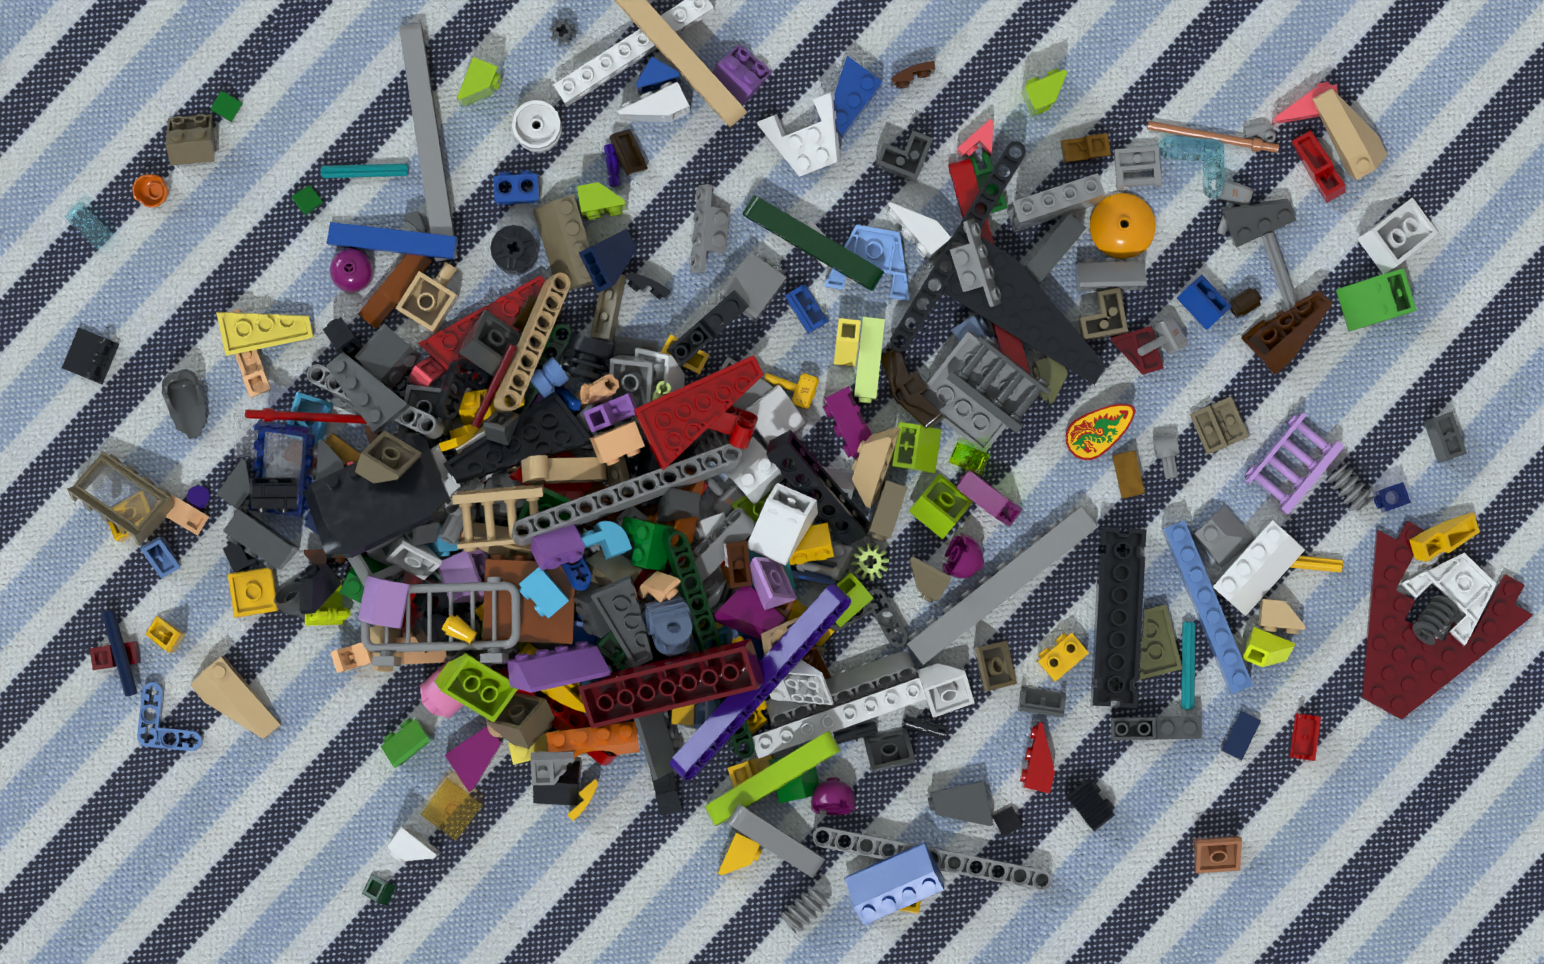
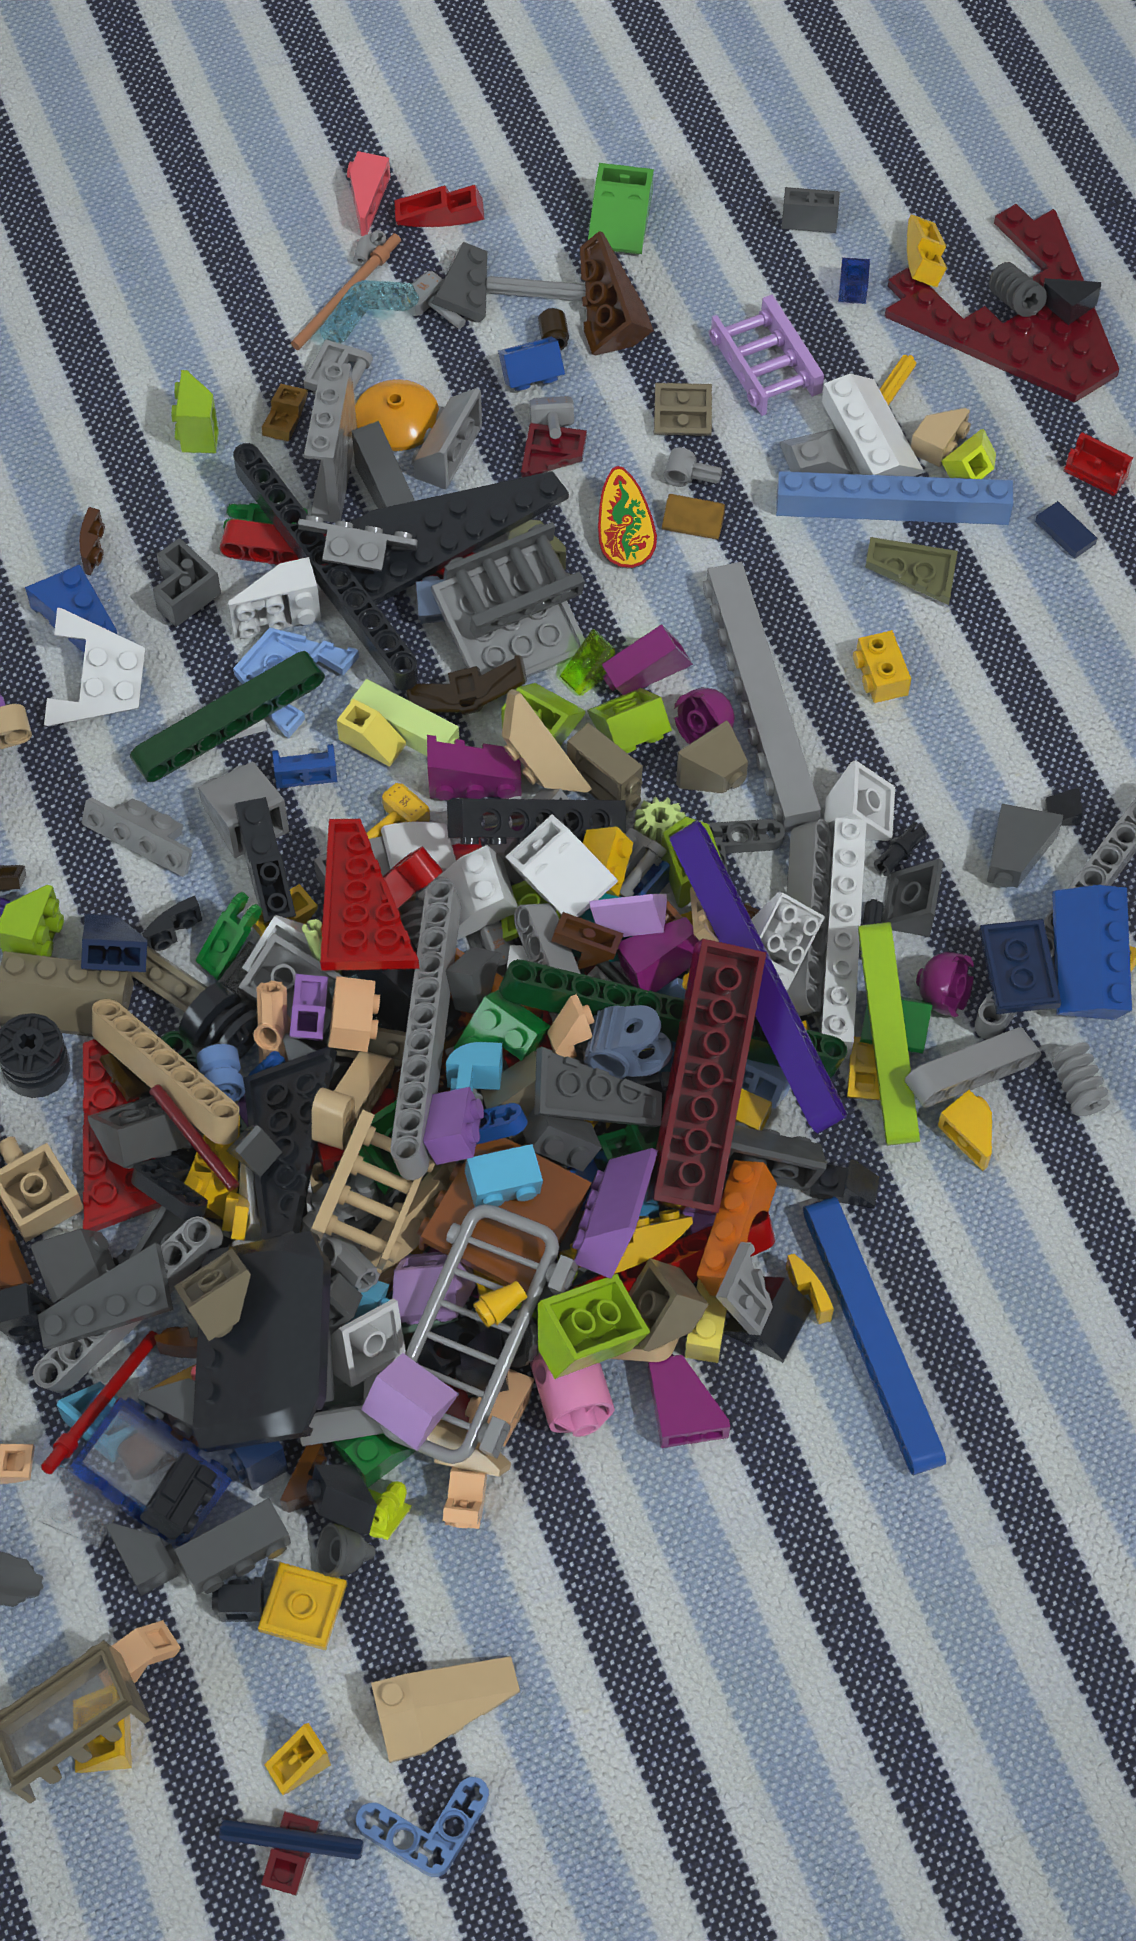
camera: 65 degrees left, 25 degrees down
(160, 556) = (182, 1713): medium blue slope -> none
(198, 497) = (125, 1620): dark purple tile -> none
(379, 889) = (813, 1624): dark green slope -> none
(406, 742) = (621, 1483): bright green slope -> none
(411, 846) = (769, 1540): white slope -> none
(426, 372) = (128, 1234): coral slope -> none
(451, 809) = (743, 1469): clear yellow plate -> none
(573, 850) = (874, 1336): none -> blue beam
(650, 328) = (228, 936): none -> green hinge
(862, 841) = (1020, 966): none -> dark blue tile
(982, 136) = (212, 503): coral slope -> none
(995, 666) = (858, 743): dark tan slope -> none
(1040, 767) = (1006, 741): red slope -> none
(1042, 702) = (930, 711): dark grey hinge -> none
(1090, 804) = (1082, 709): black brick -> none
(1109, 321) = (492, 455): dark tan brick -> none
(1118, 617) = (863, 587): black brick -> none
(1156, 728) = (1019, 602): dark grey slope -> none
(1188, 666) = (965, 550): teal axle -> none
(1350, 488) = (823, 311): light grey piece -> none
(1351, 136) = (421, 164): tan wedge -> none
(1397, 236) = (560, 170): white slope -> none
(1440, 662) = (1071, 297): none -> black slope
(1462, 583) = (983, 251): white wing -> none

